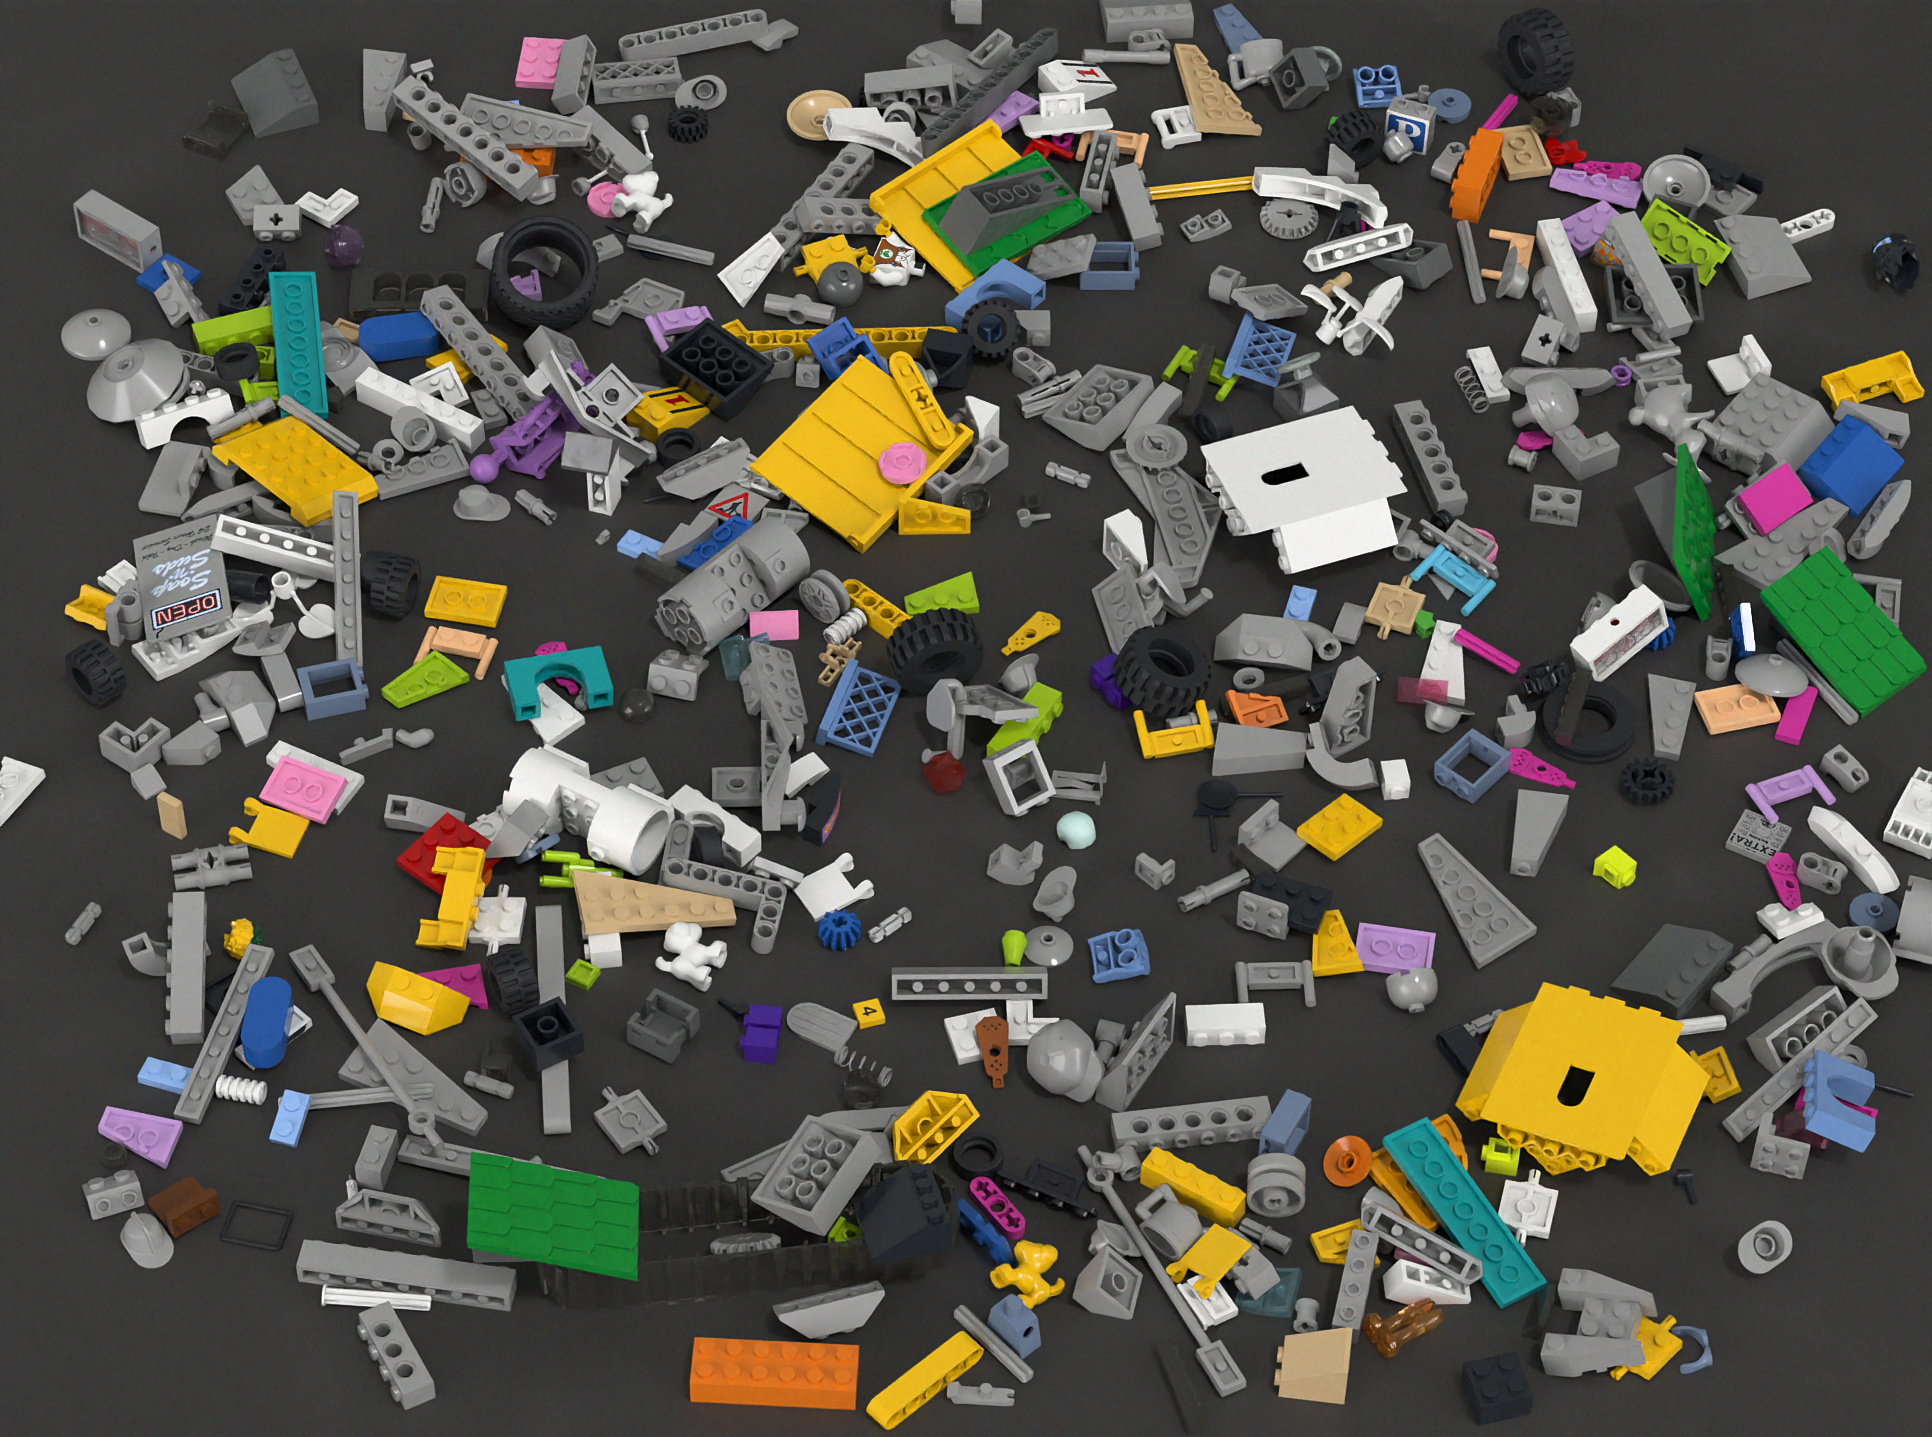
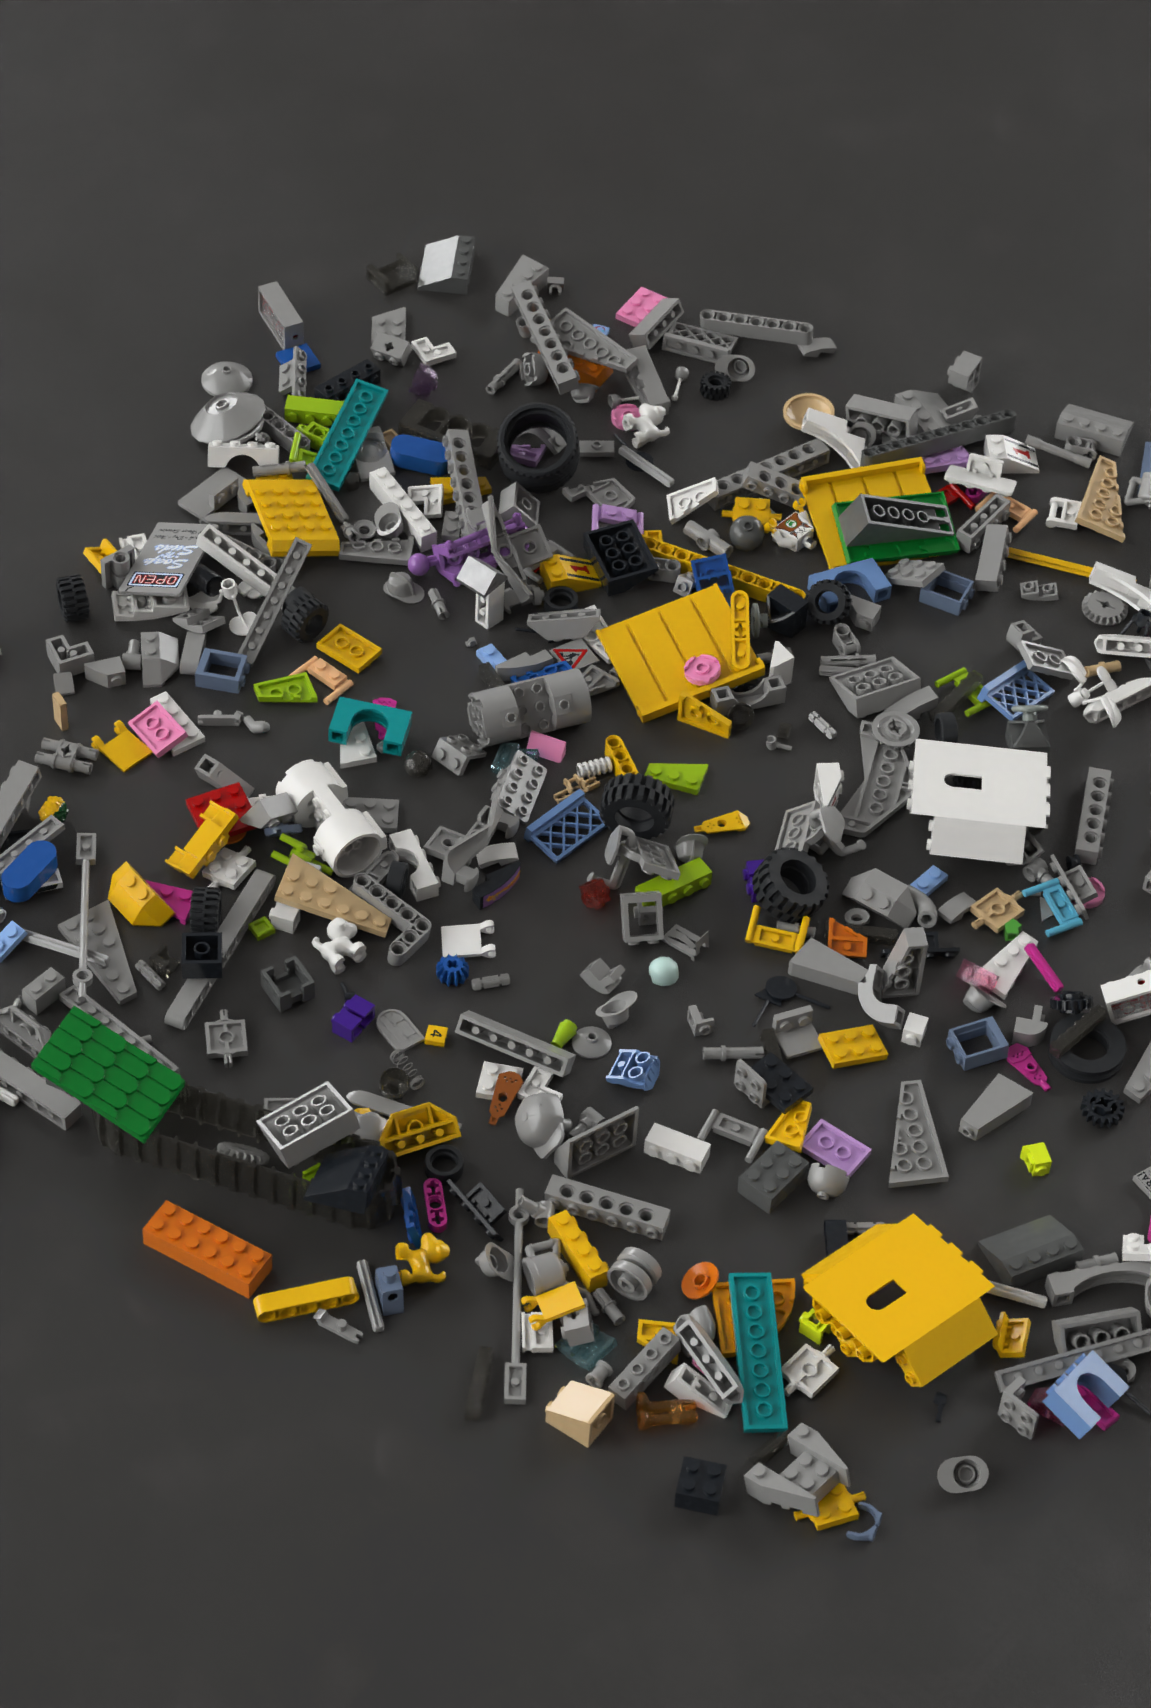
camera: 25 degrees right, 0 degrees up
(237, 361) = (297, 429): black tyre -> none
(769, 870) = (431, 913): light grey wing -> none
(824, 596) = (590, 739): light grey wheel -> none
(831, 1311) = (269, 1223): light grey wedge -> none
(1108, 1285) = (474, 1291): light grey slope -> none
(1286, 1125) = (668, 1237): sand blue window -> none
(1350, 1010) = (773, 1177): none -> dark grey brick

